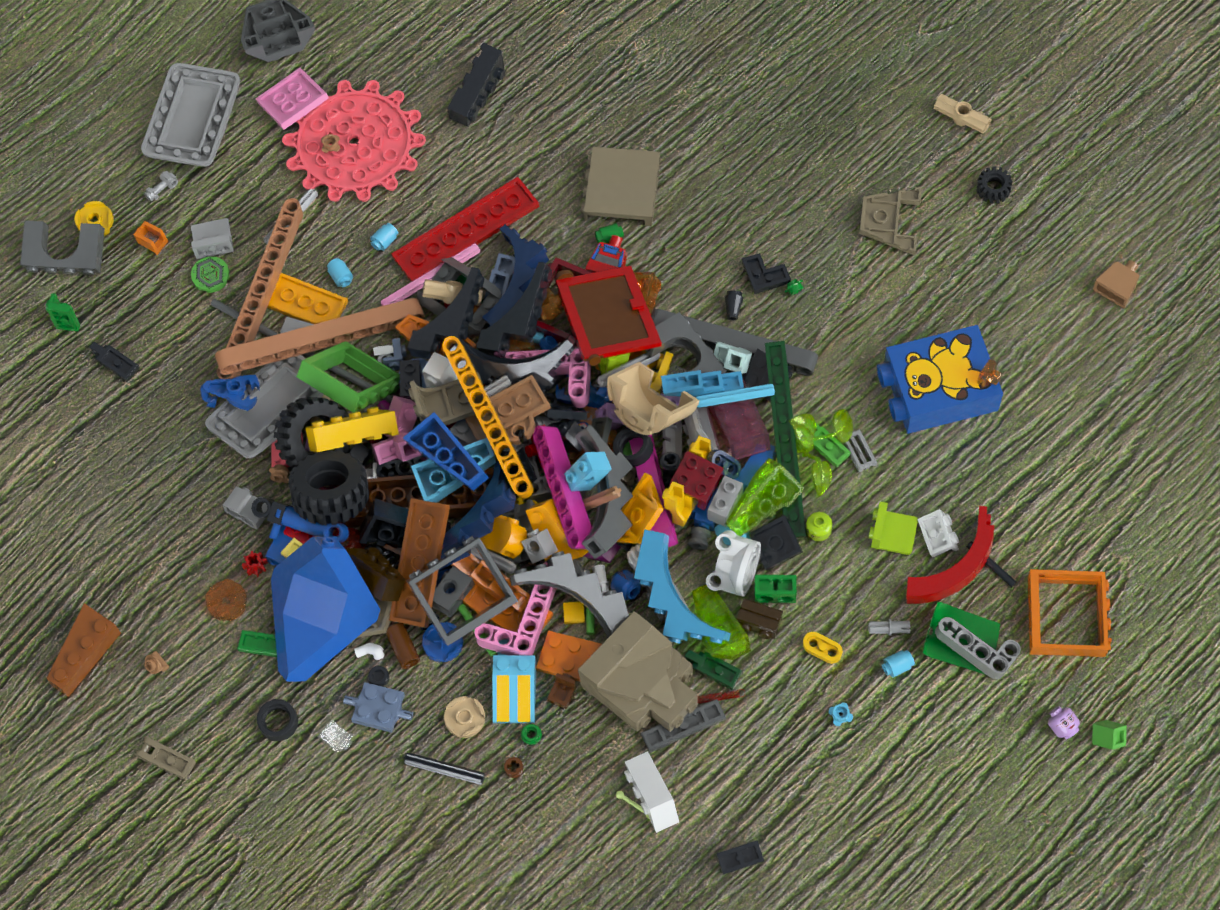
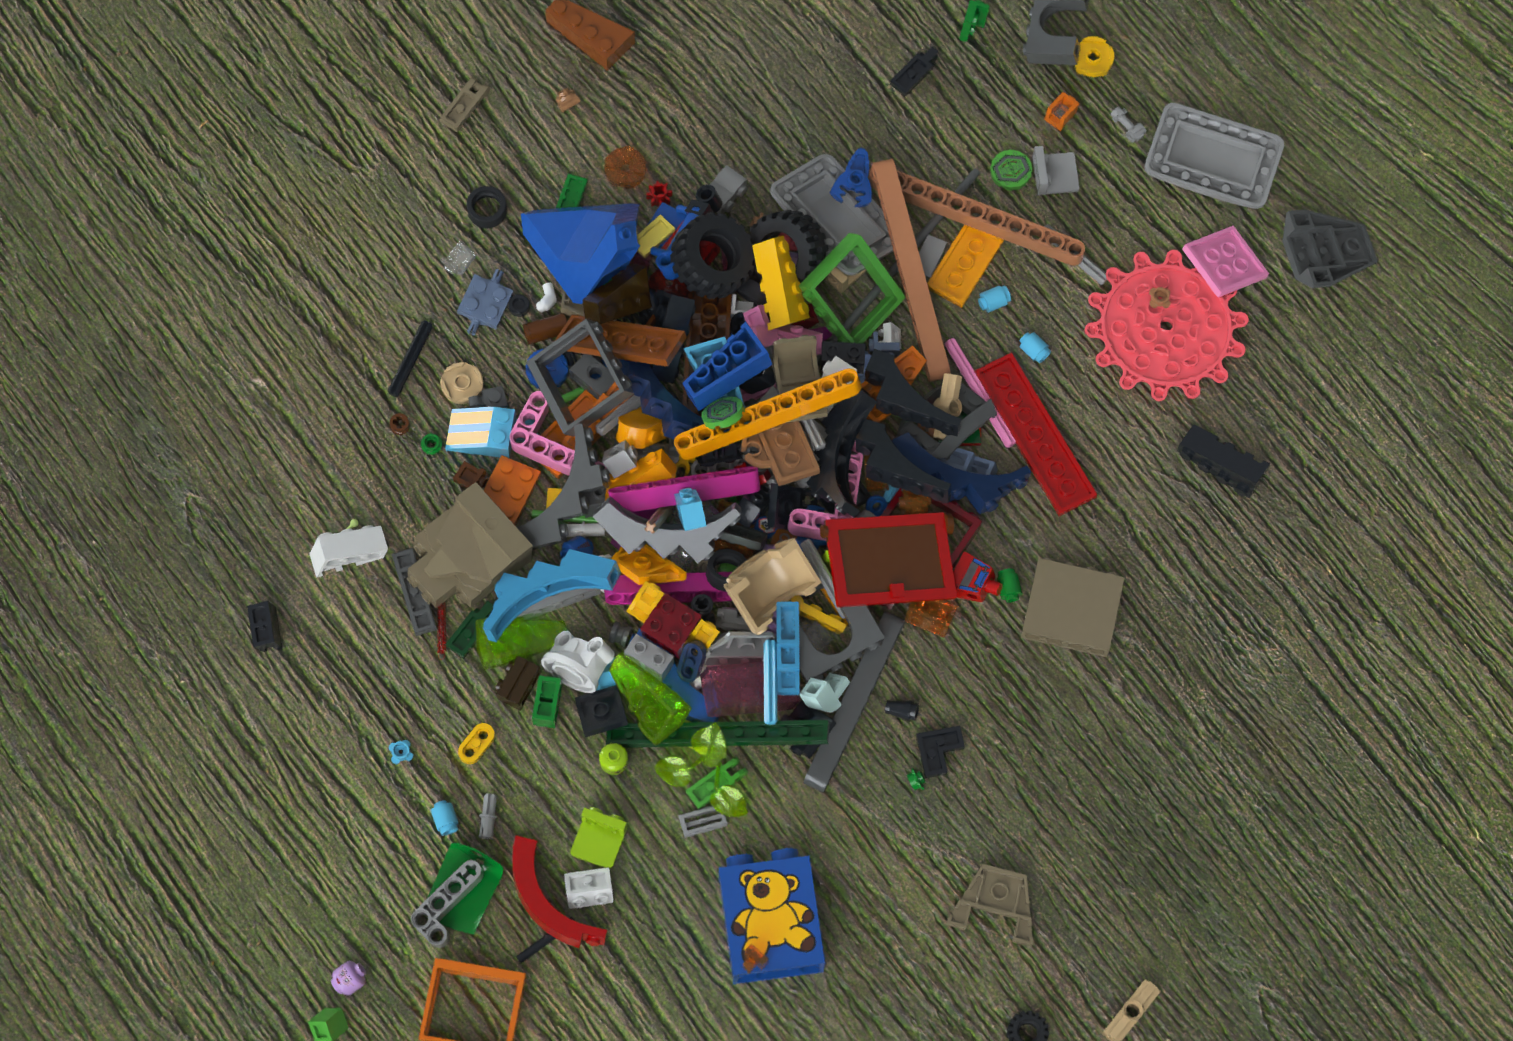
camera: 90 degrees right, 5 degrees up
(479, 686) = (490, 398): none -> dark grey plate
(492, 451) = (723, 412): none -> bright green tile

